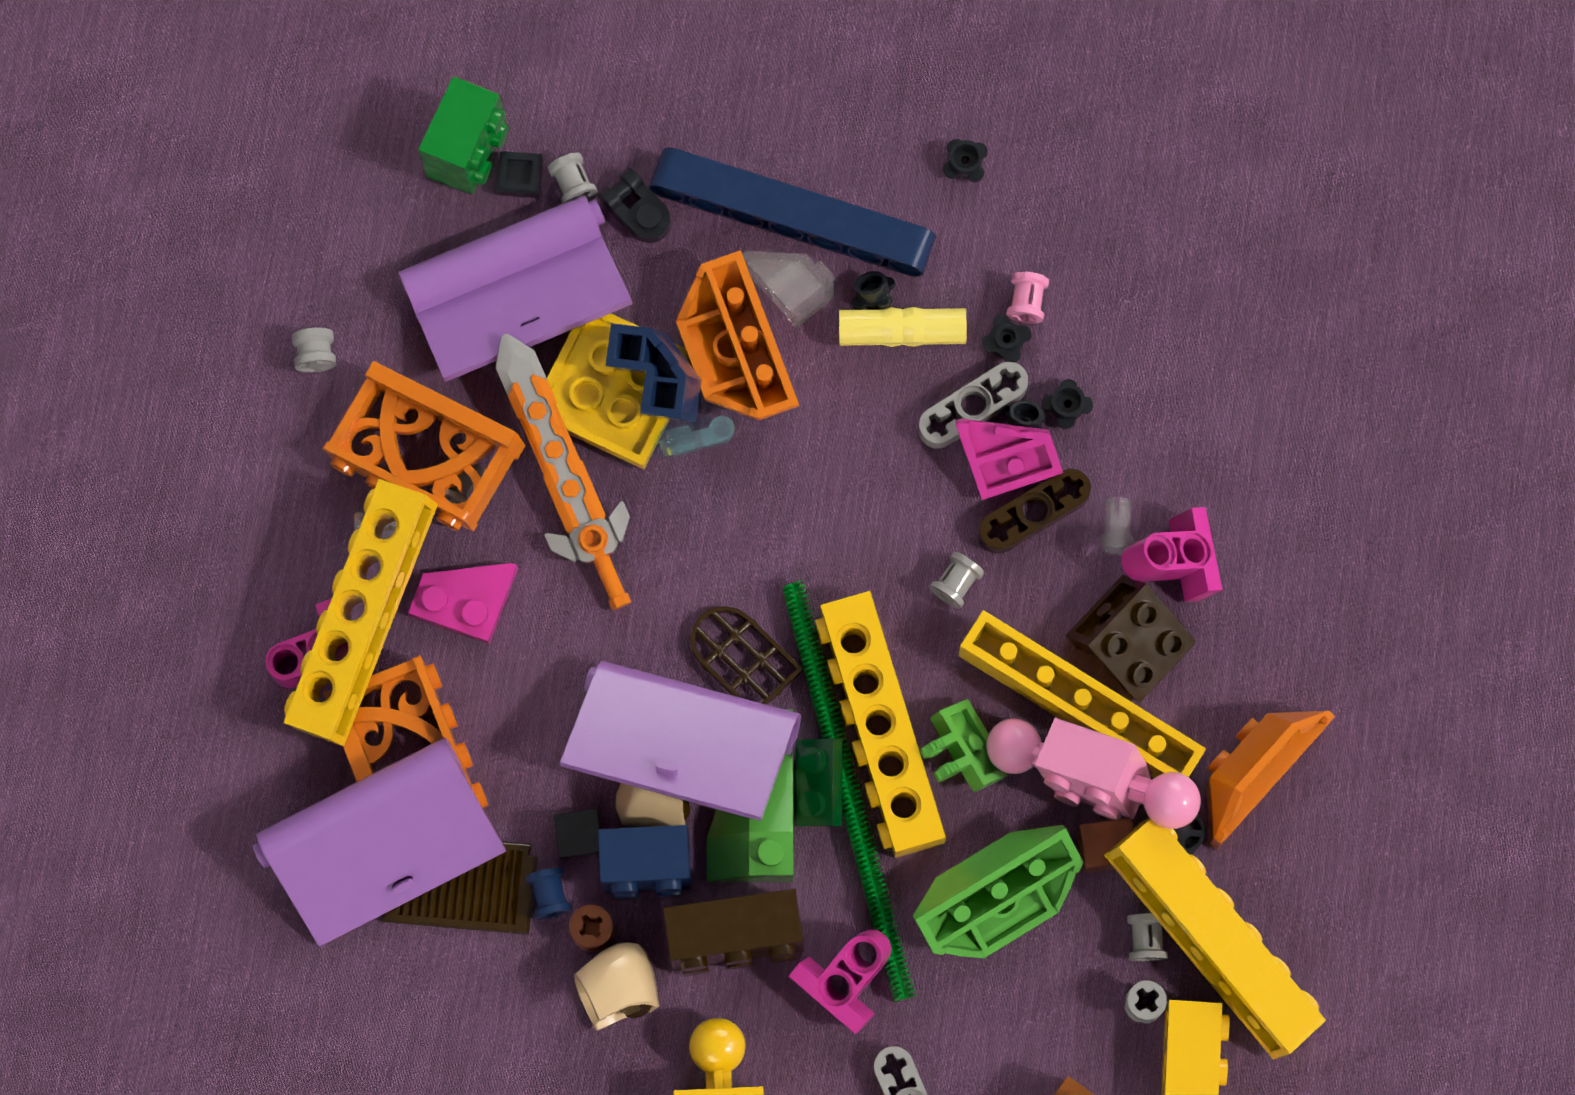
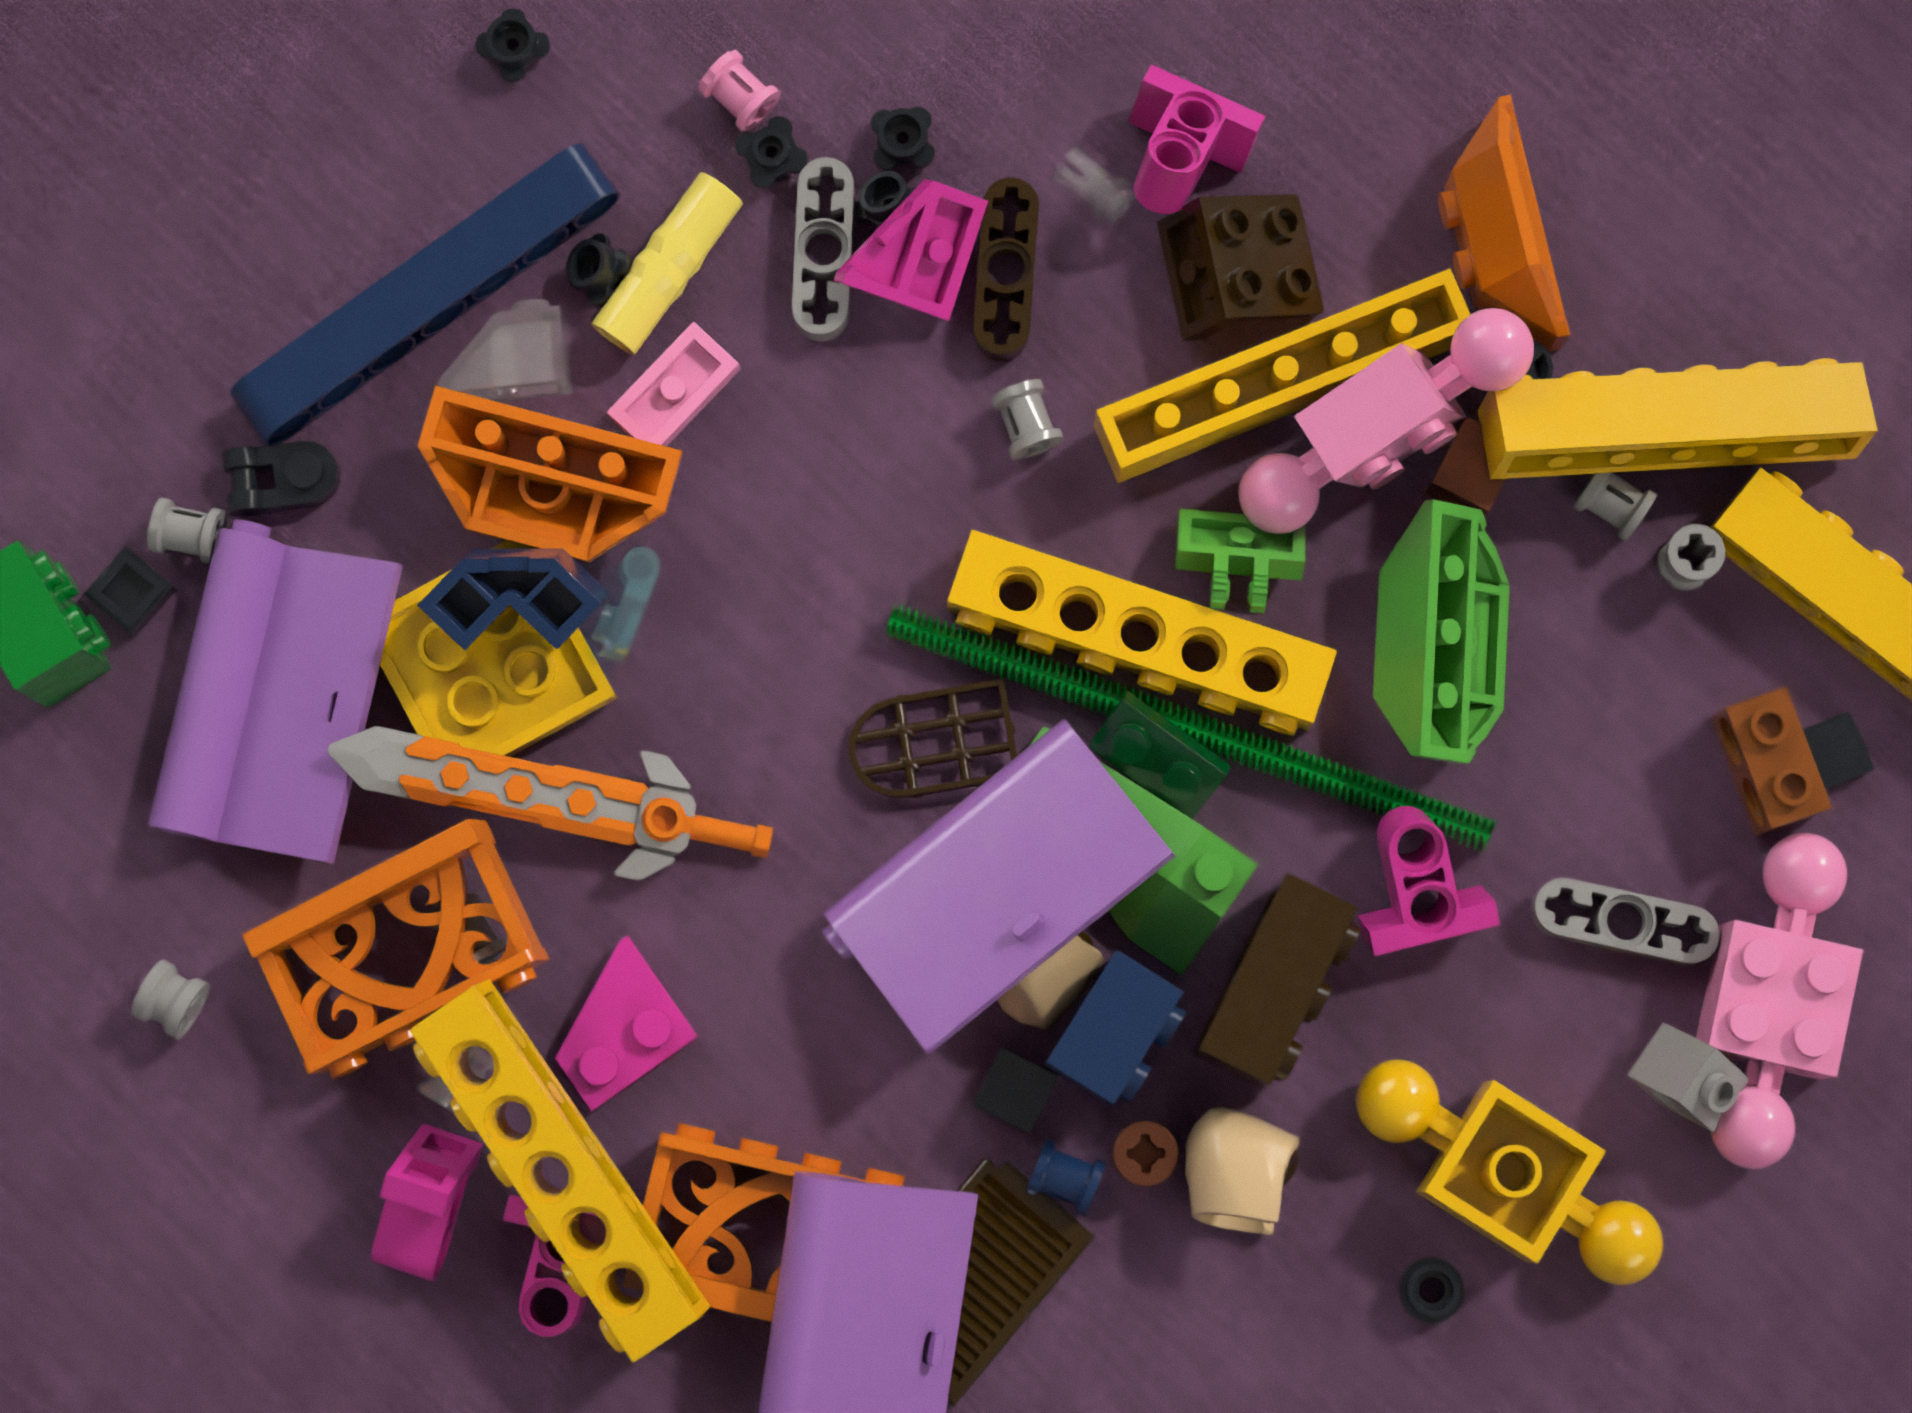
camera: 55 degrees left, 5 degrees up
(296, 557) = (424, 1201): none -> dark pink tile
(835, 379) = (674, 388): none -> bright pink plate

